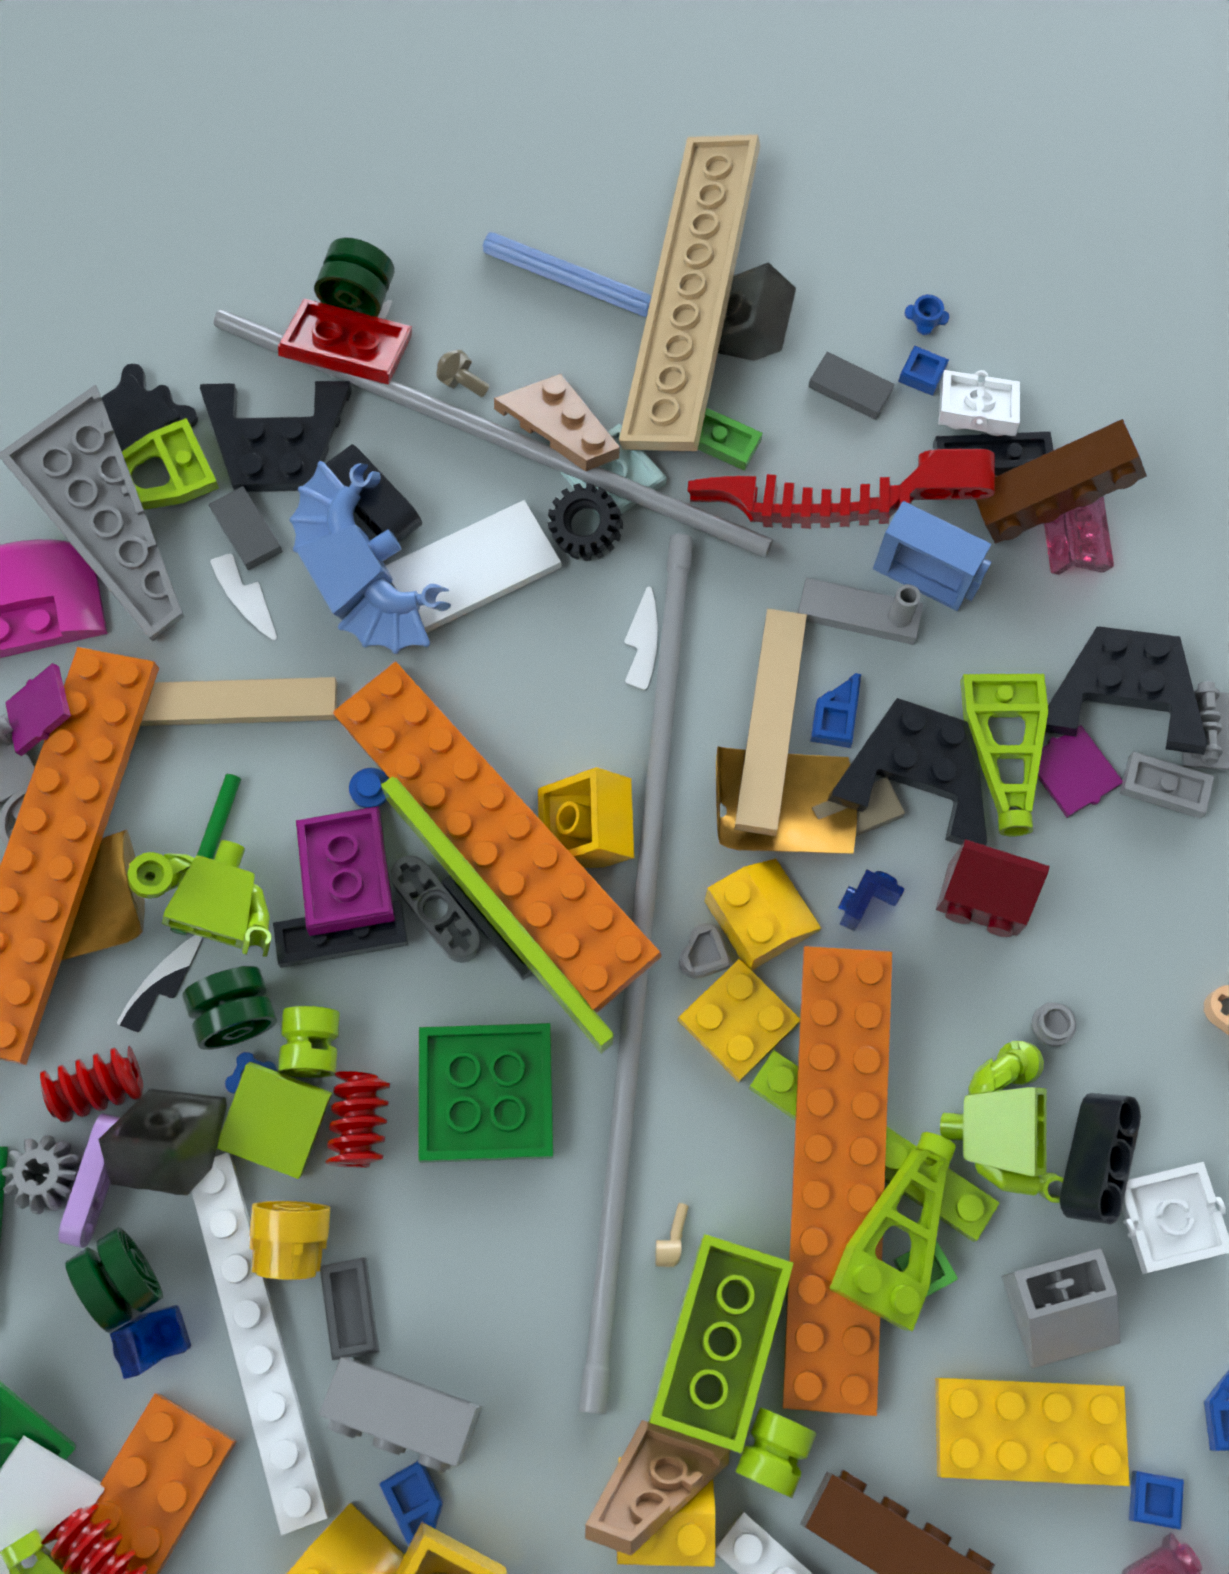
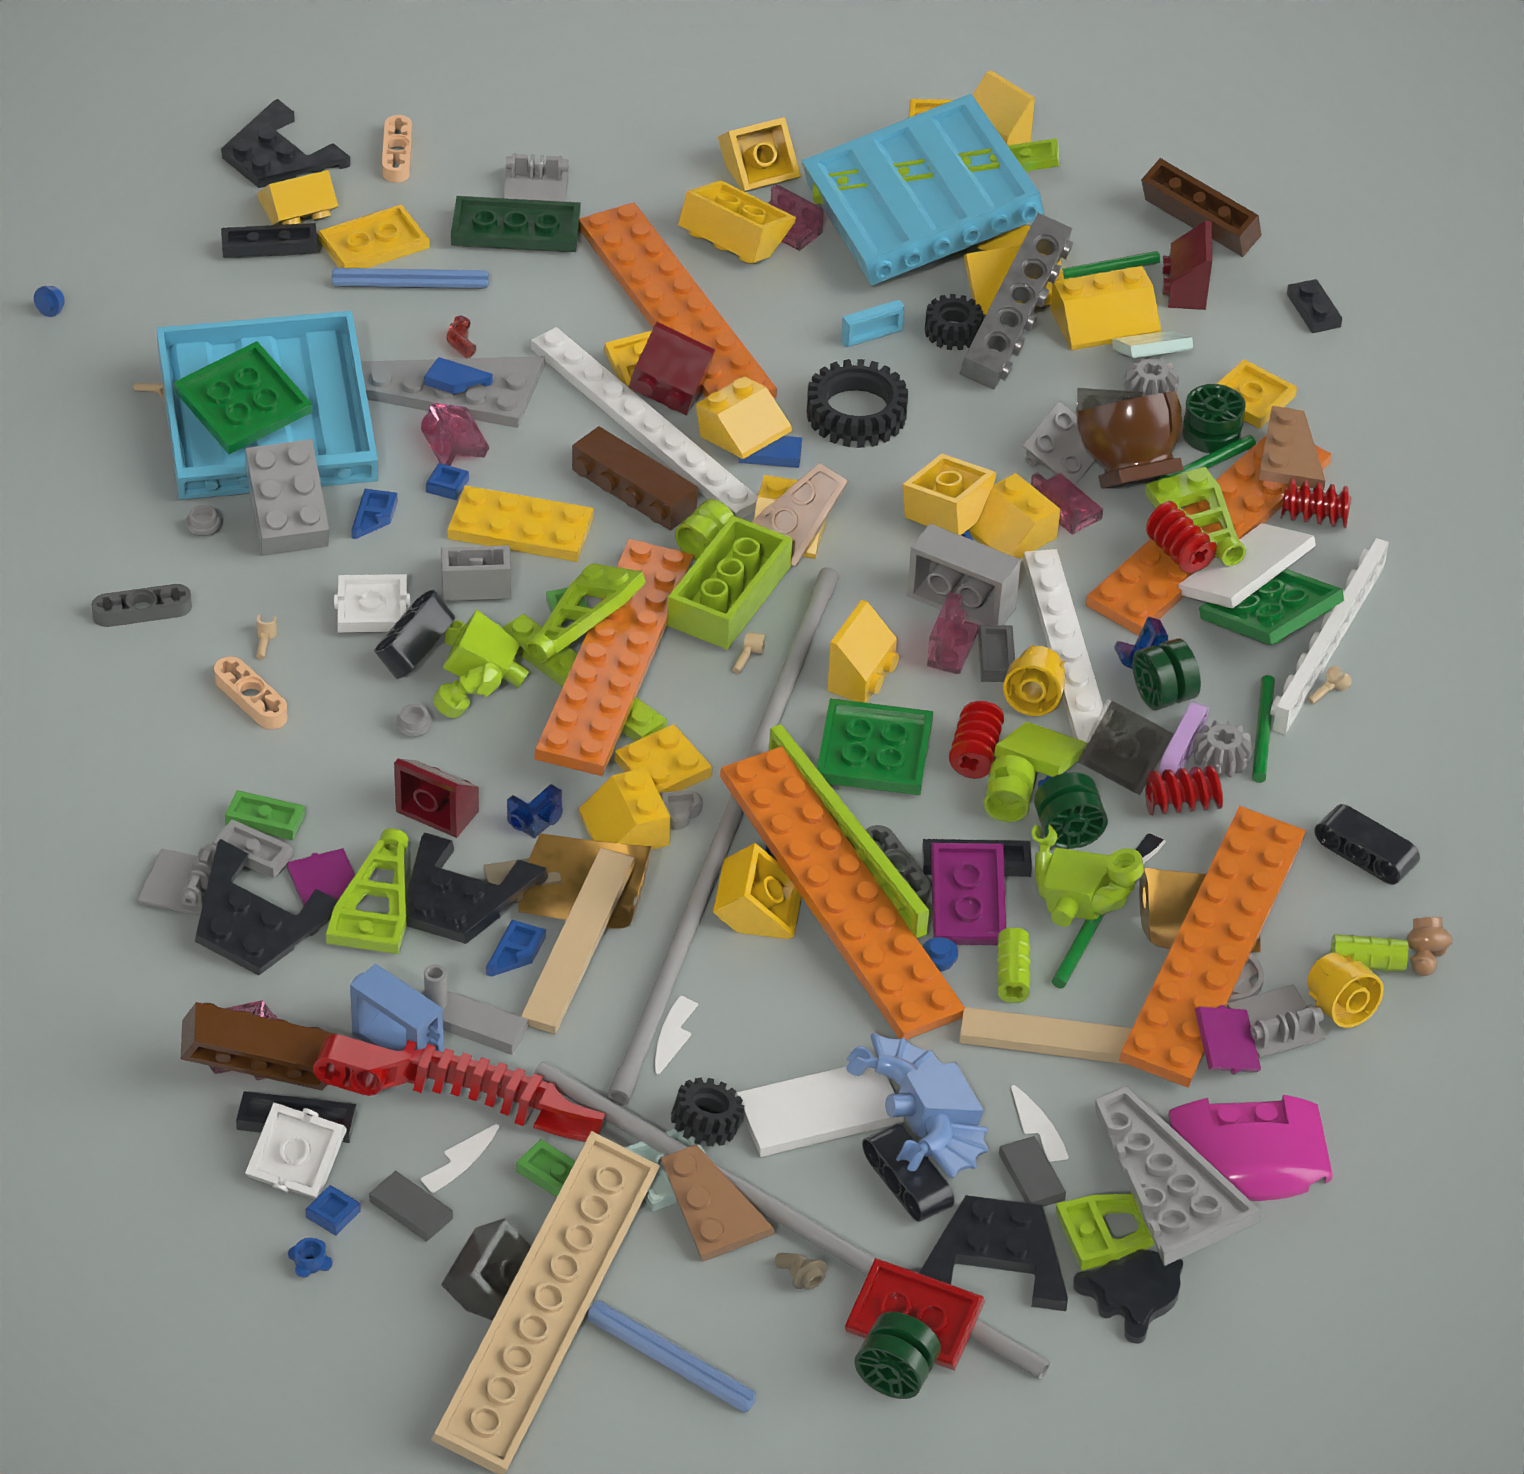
camera: 170 degrees left, 25 degrees down
(283, 779) = (1013, 965): none -> lime axle
(407, 1305) = (951, 637): none -> clear pink bracket
(520, 1230) = (861, 655): none -> yellow slope
(819, 456) = (461, 1159): none -> white sticker
(1172, 836) = (266, 814): none -> bright green plate

